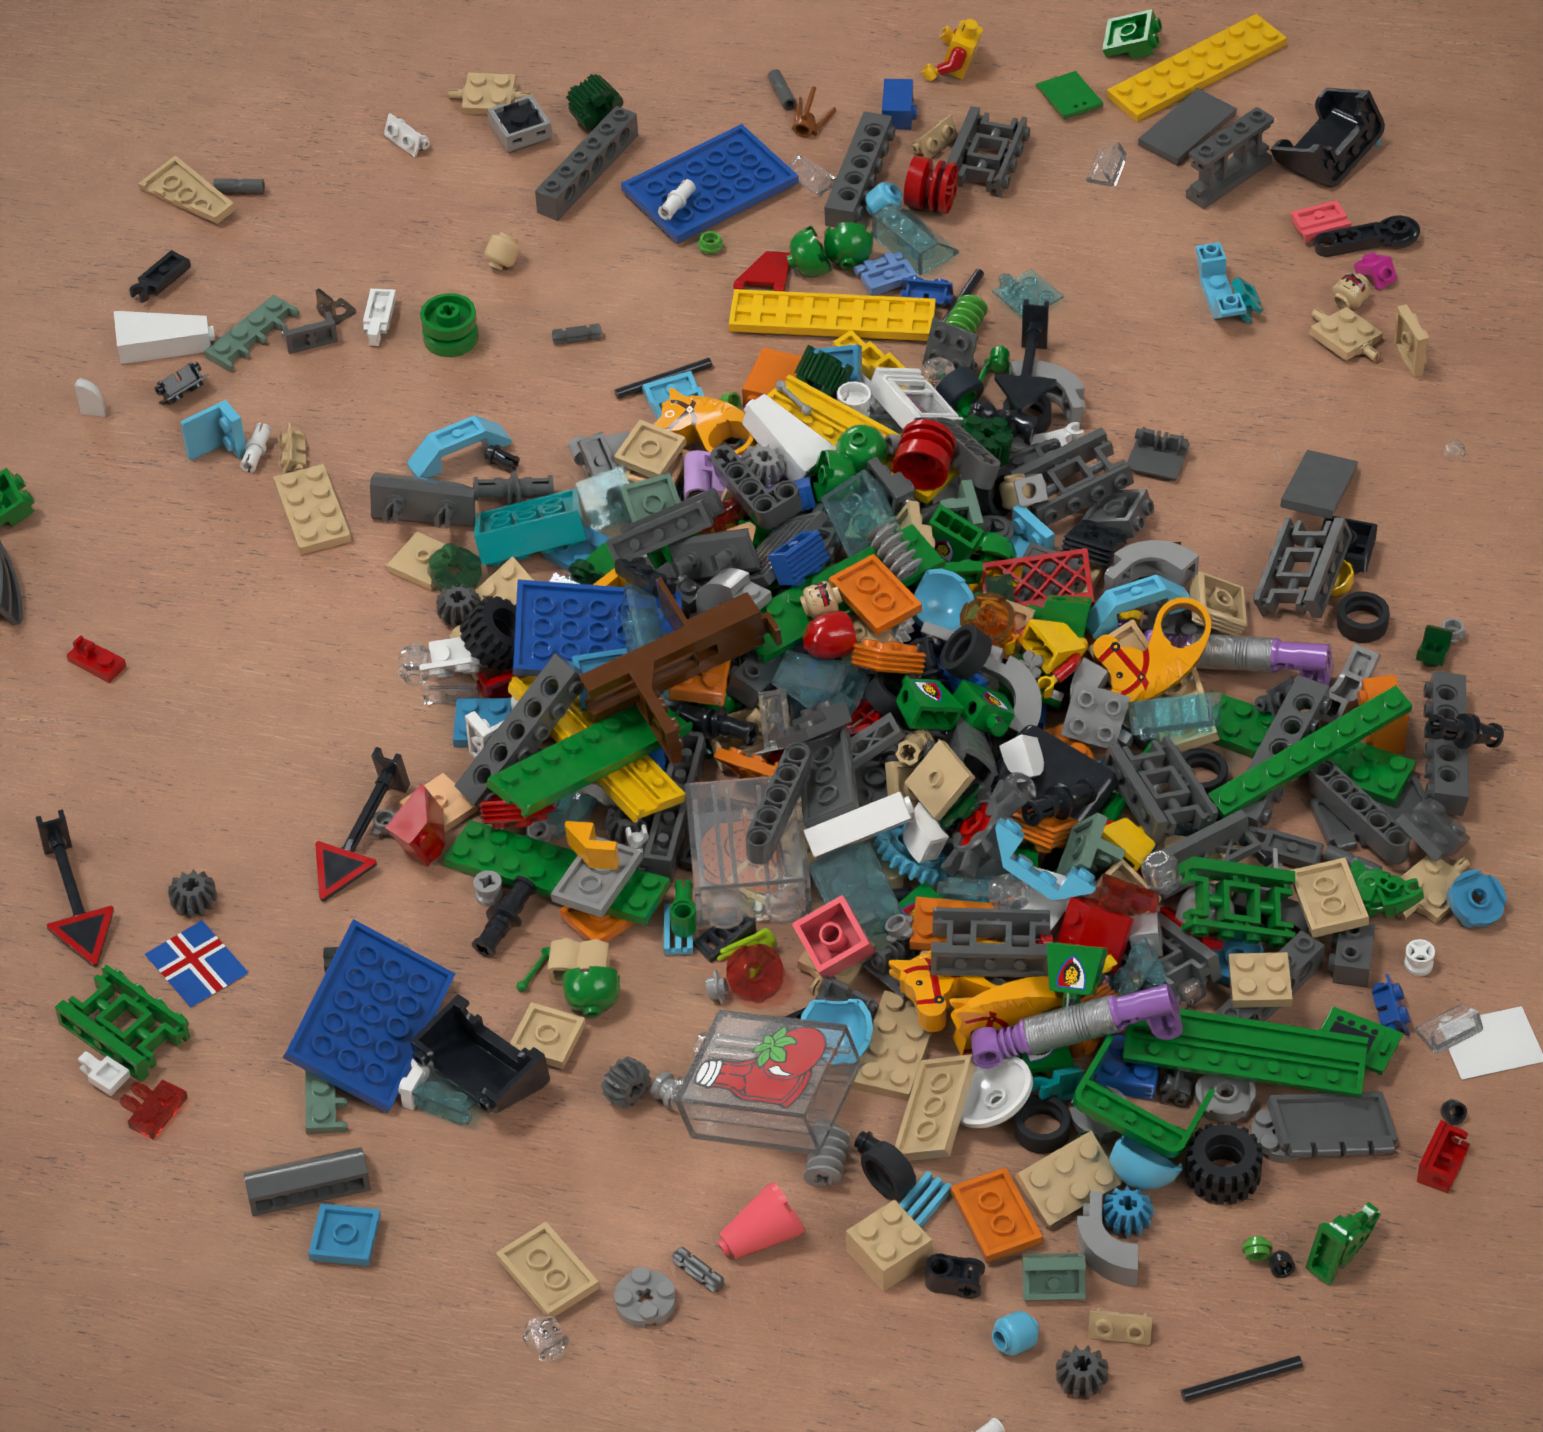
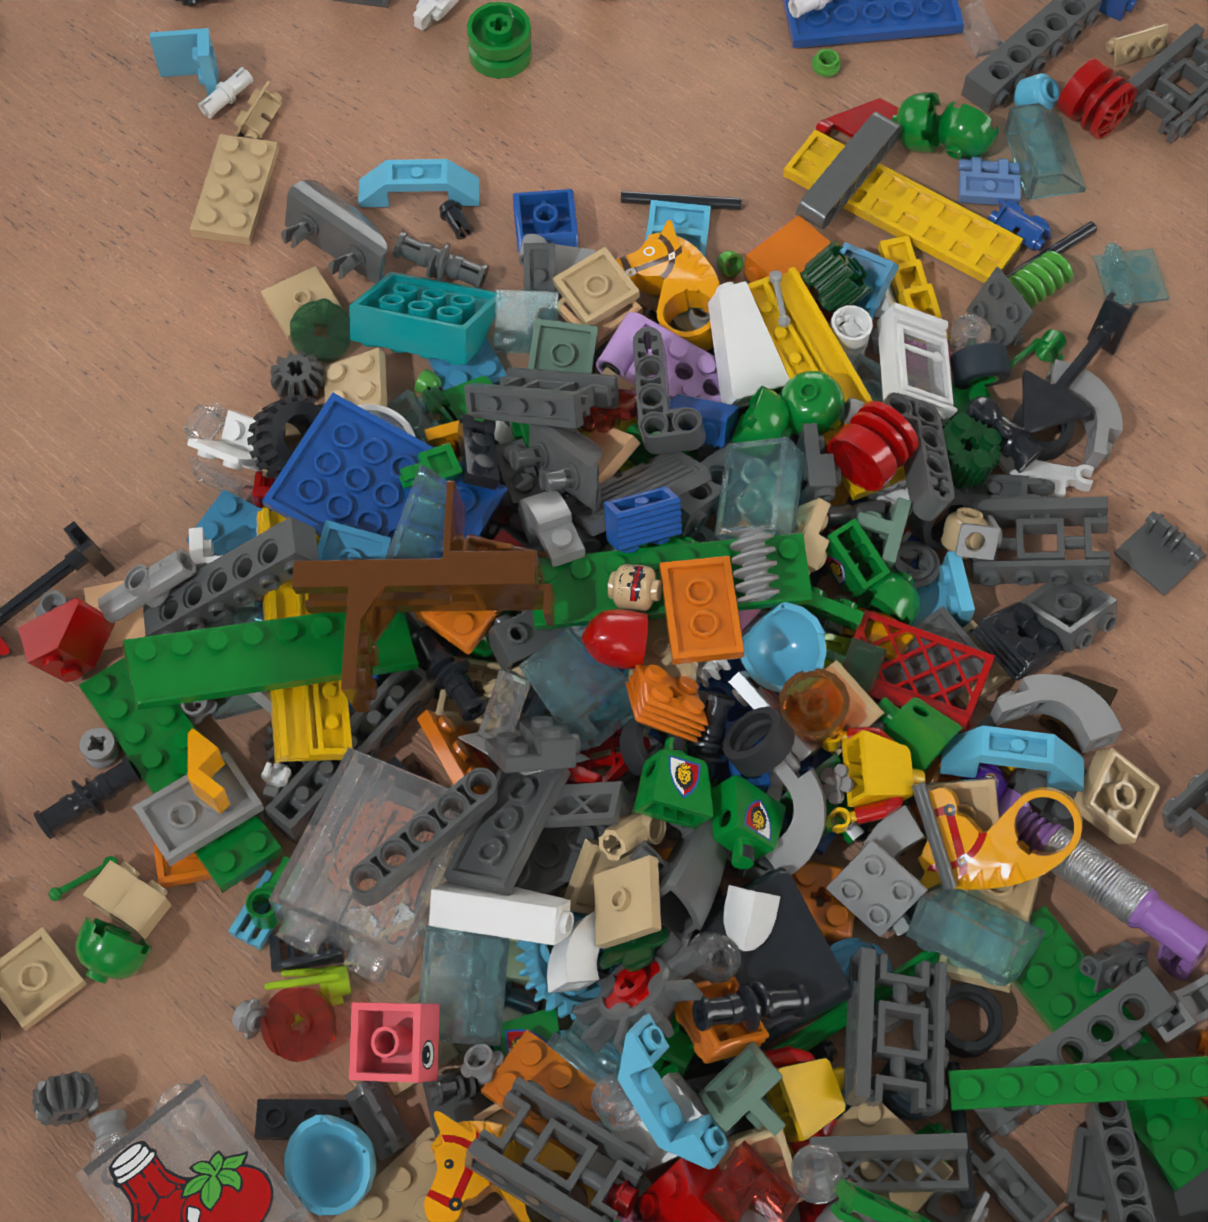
camera: 25 degrees right, 15 degrees up
(459, 764) = (147, 586): none -> light grey piece
(559, 567) = (427, 380): none -> bright green hinge
(569, 423) = (548, 215): none -> blue brick
(576, 333) = (624, 107): dark grey axle -> none
(616, 593) = (438, 459): none -> green plate
(764, 463) = (695, 367): light grey gear -> none
(780, 303) = (849, 170): none -> dark grey beam
(1114, 667) = (934, 836): none -> dark grey bar

